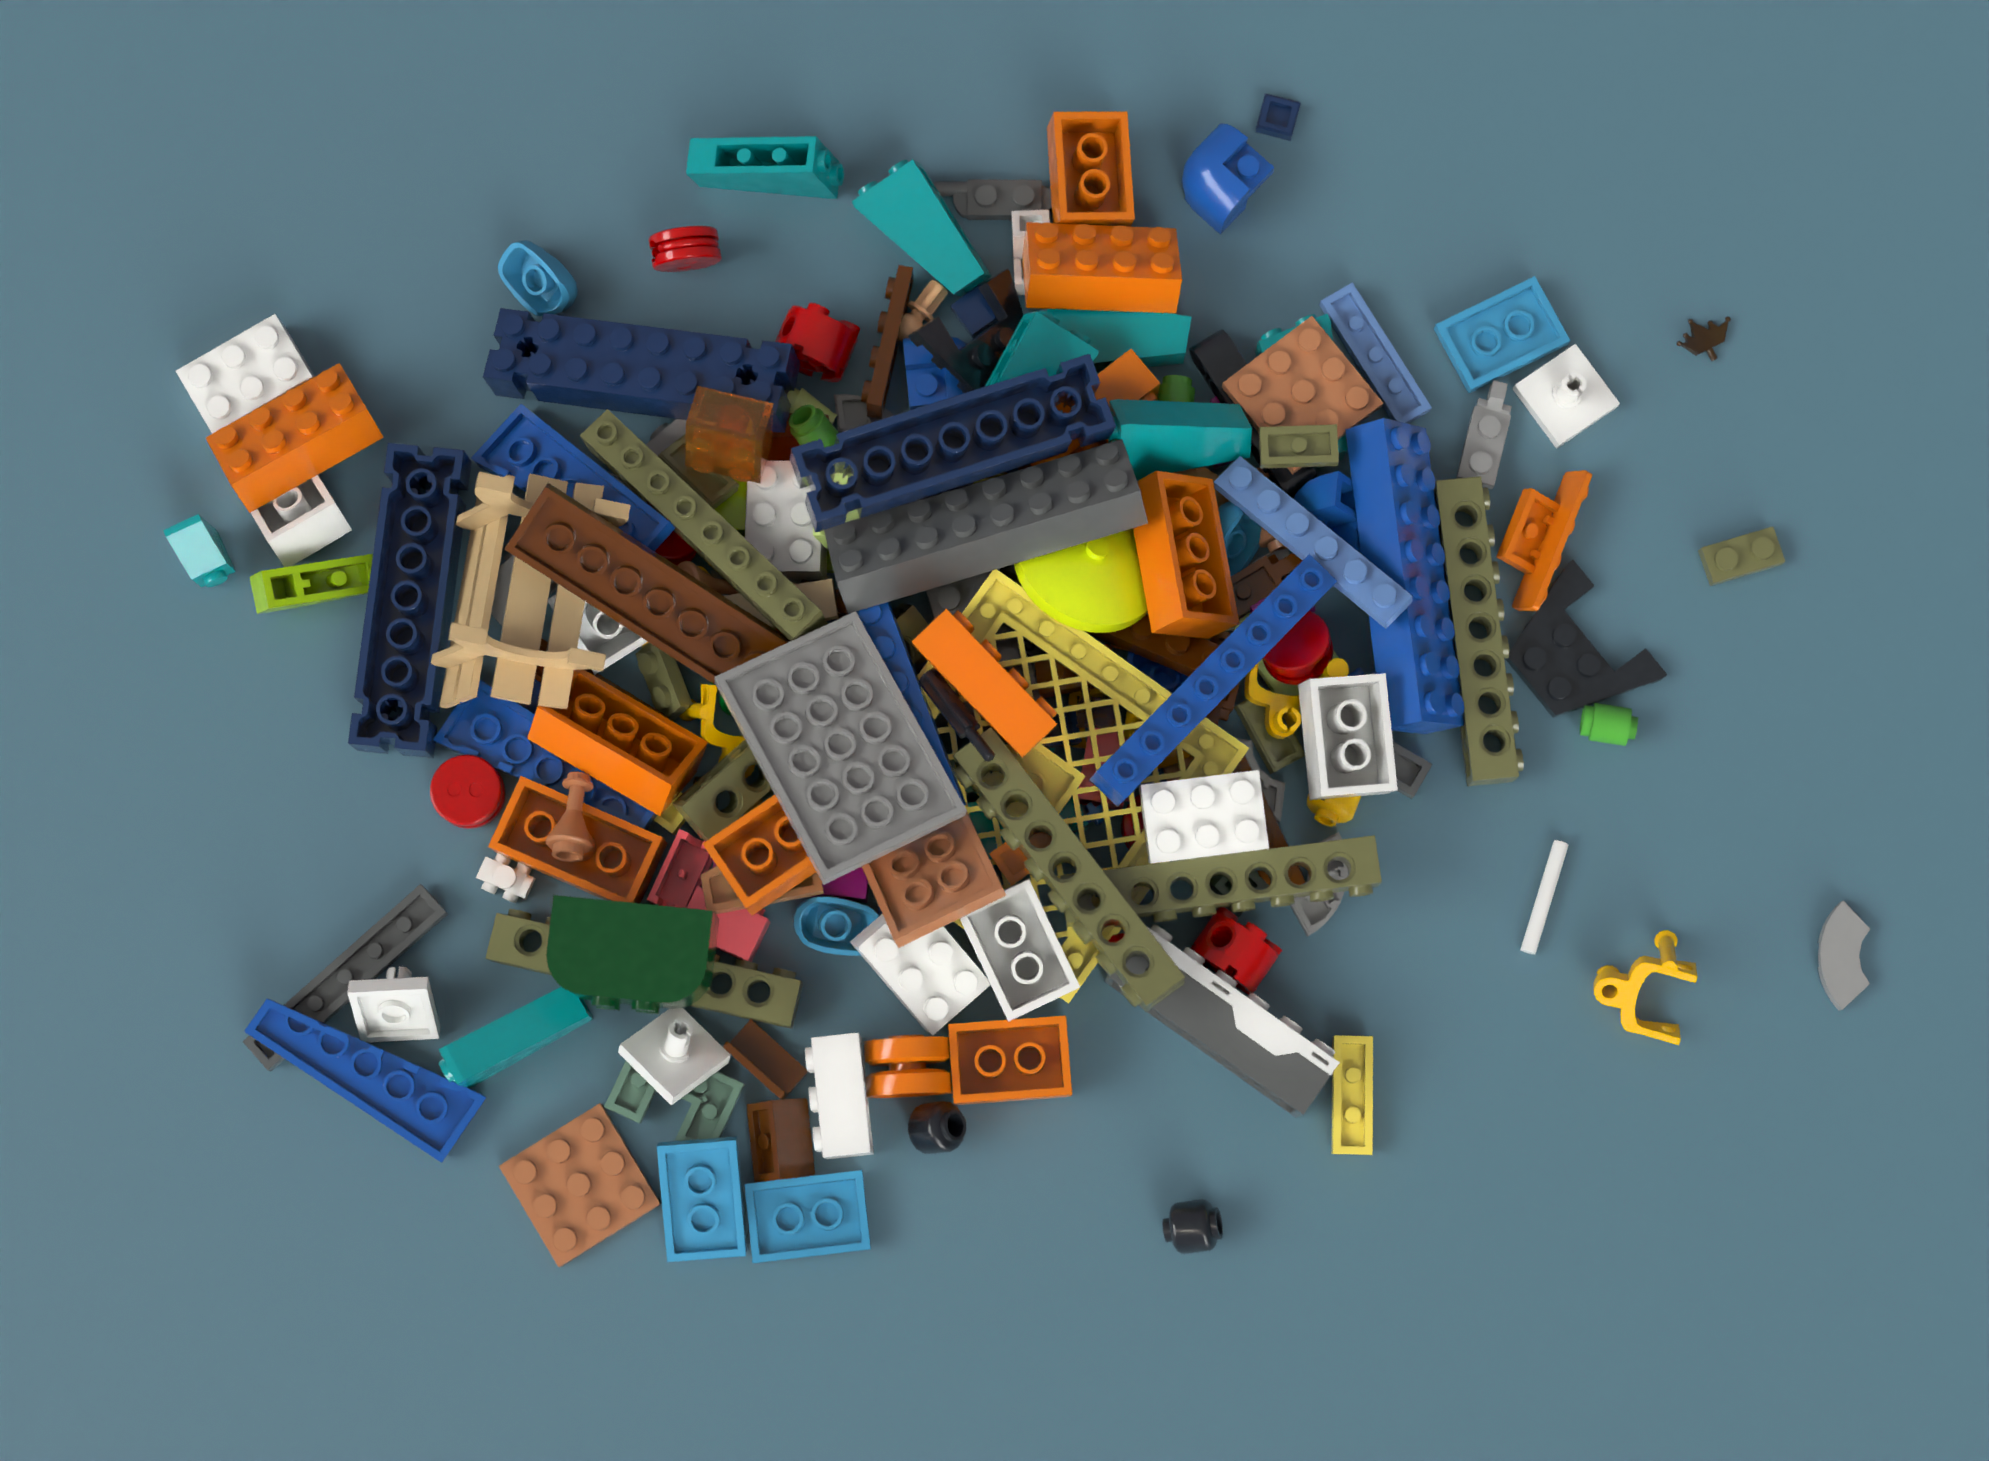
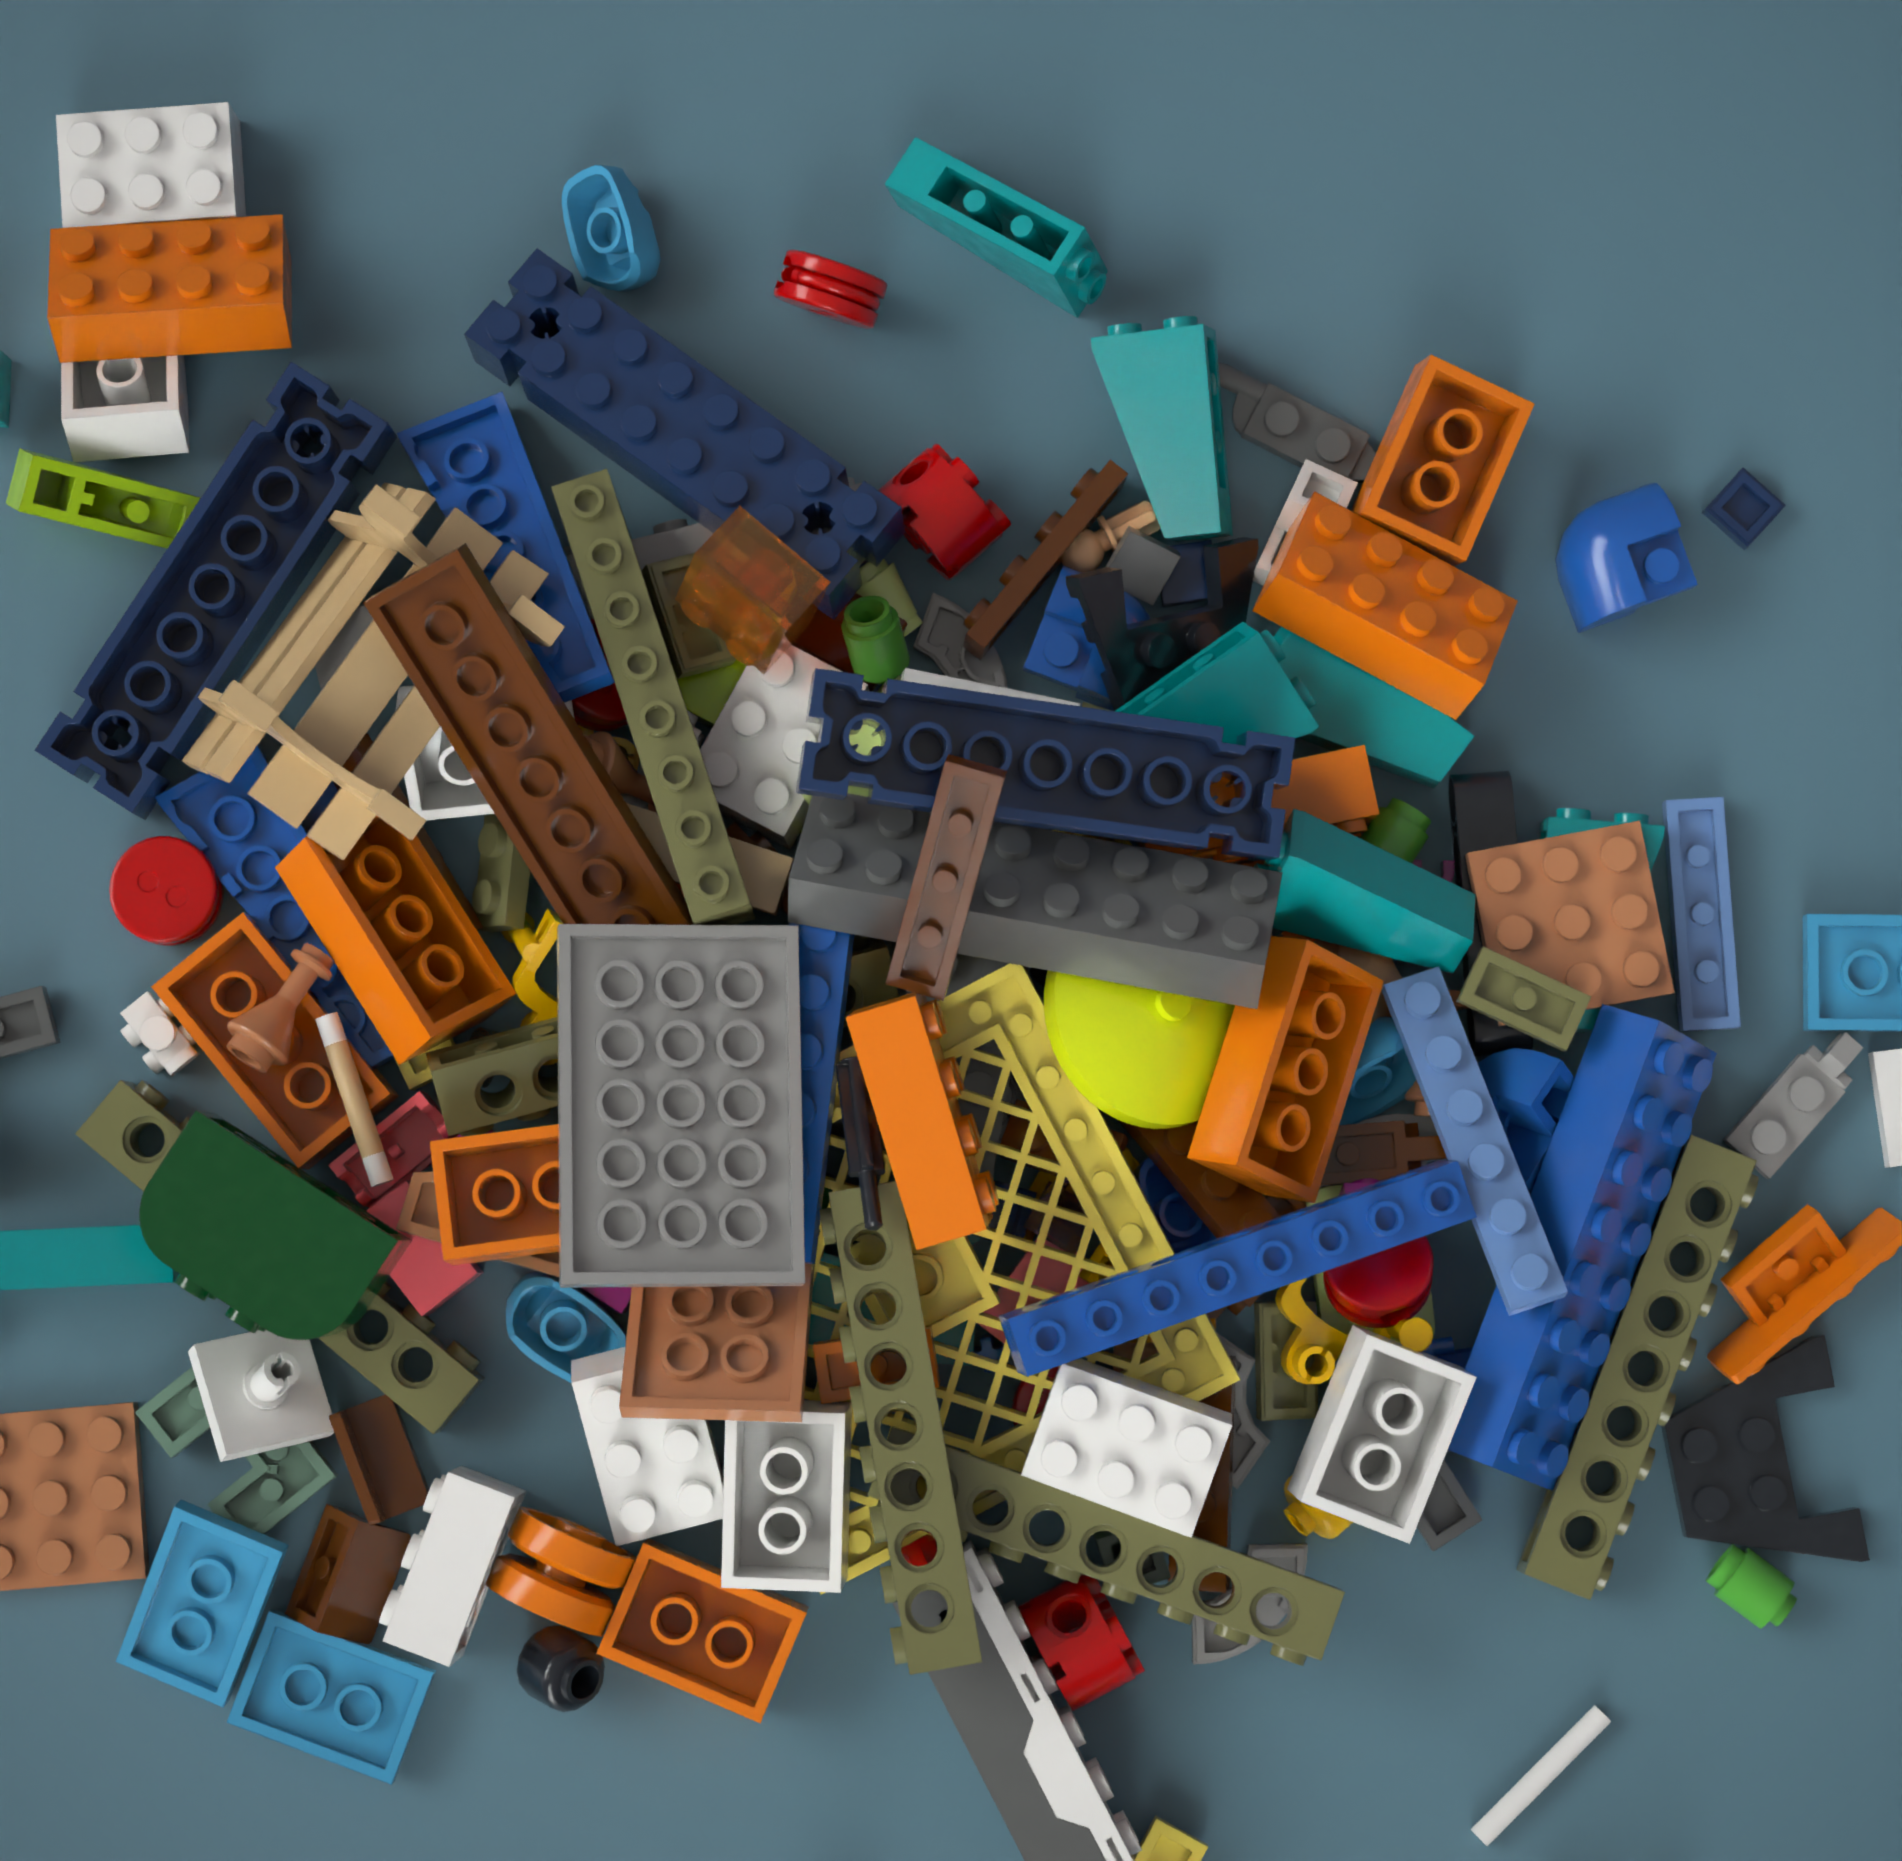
camera: 25 degrees right, 5 degrees up
(643, 850) = (354, 1099): none -> tan bar
(929, 531) = (946, 877): none -> reddish brown plate
(952, 313) = (1144, 564): none -> dark grey tile

